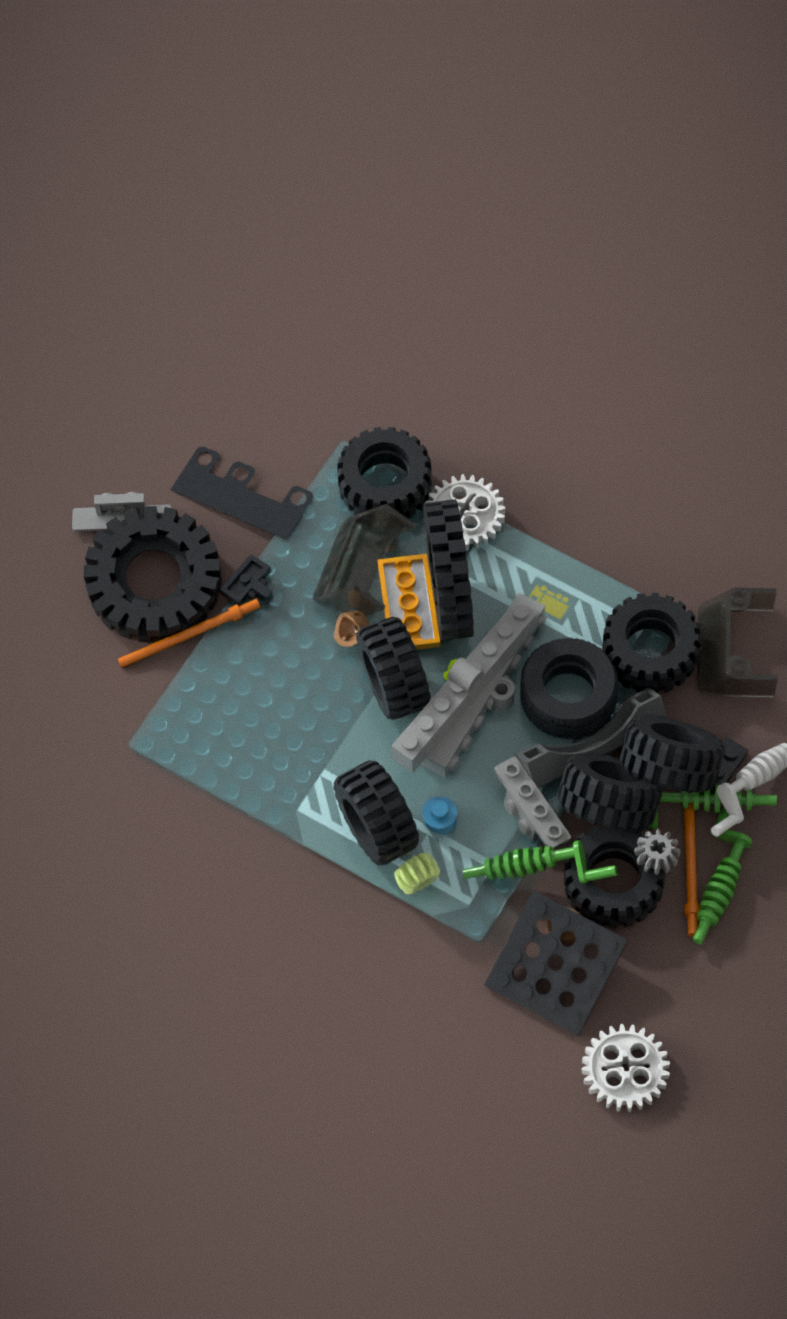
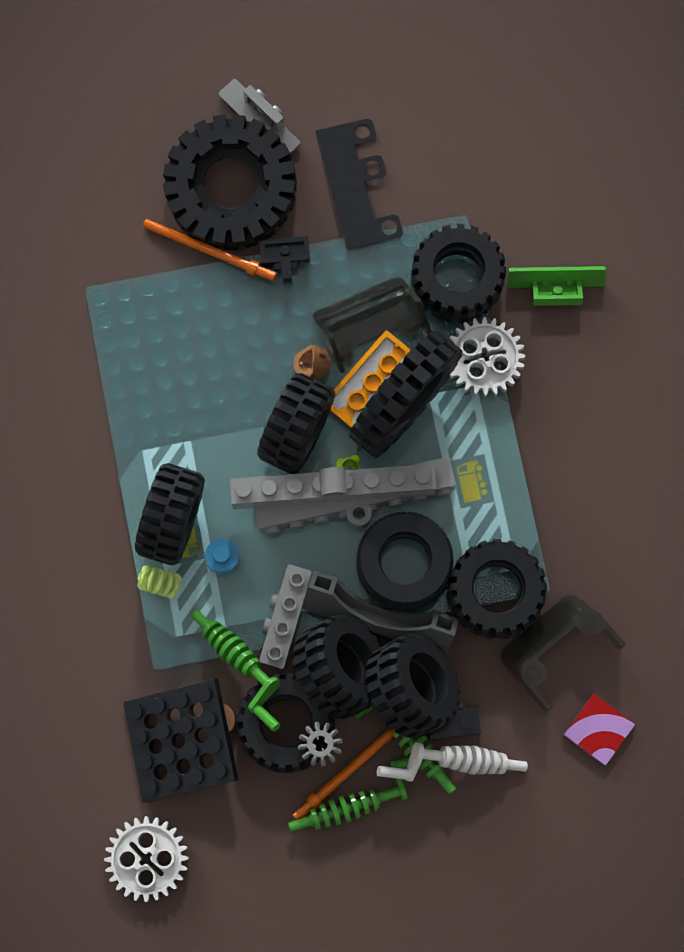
camera: 45 degrees right, 15 degrees up
(458, 421) = (557, 284): none -> bright green bracket

